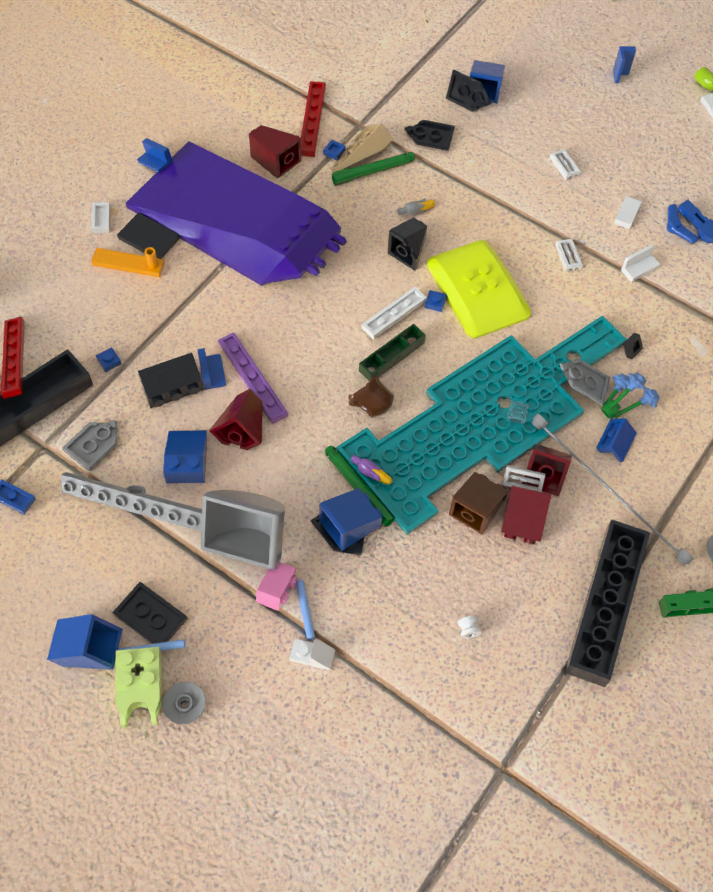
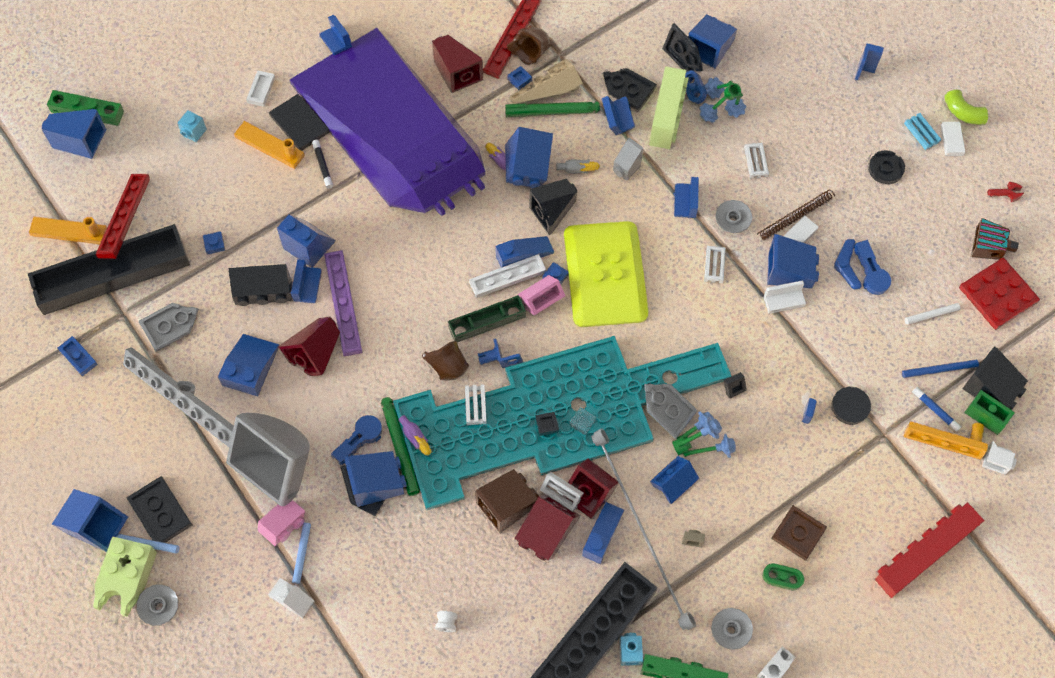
camera: 20 degrees right, 5 degrees up
(48, 264) = (192, 126): none -> medium azure brick
(184, 265) = (322, 163): none -> black bar
(195, 331) = (303, 239): none -> blue slope
(326, 479) = (369, 428): none -> blue piece
(332, 121) = (529, 44): none -> reddish brown piece
(345, 218) = (496, 154): none -> medium lavender piece
(372, 207) = (528, 157): none -> blue slope
(396, 287) = (521, 249): none -> blue slope
(409, 414) = (474, 389): none -> white tile
(413, 380) = (495, 354): none -> blue bracket
(434, 157) = (618, 115): none -> blue panel
(434, 317) = (541, 294): none -> bright pink brick
(460, 188) = (628, 159): none -> light grey slope
(475, 139) = (668, 108): none -> yellowish green brick
(487, 424) = (546, 423): none -> black plate
(489, 120) = (695, 88): none -> blue plate
(522, 208) = (686, 199): none -> blue panel
(529, 127) = (734, 103): none -> medium blue plant
(568, 211) = (736, 210): none -> light grey dish
(575, 505) = (602, 533): none -> blue slope
(607, 213) = (795, 214): none -> reddish brown piece
(632, 233) = (792, 262): none -> blue slope
(647, 597) = (630, 650): none -> medium azure brick
(657, 484) = (693, 538): none -> dark tan plate
(673, 142) = (886, 167): none -> black tile
(689, 107) = (925, 130): none -> medium azure tile
(704, 348) = (809, 411): none -> blue tile

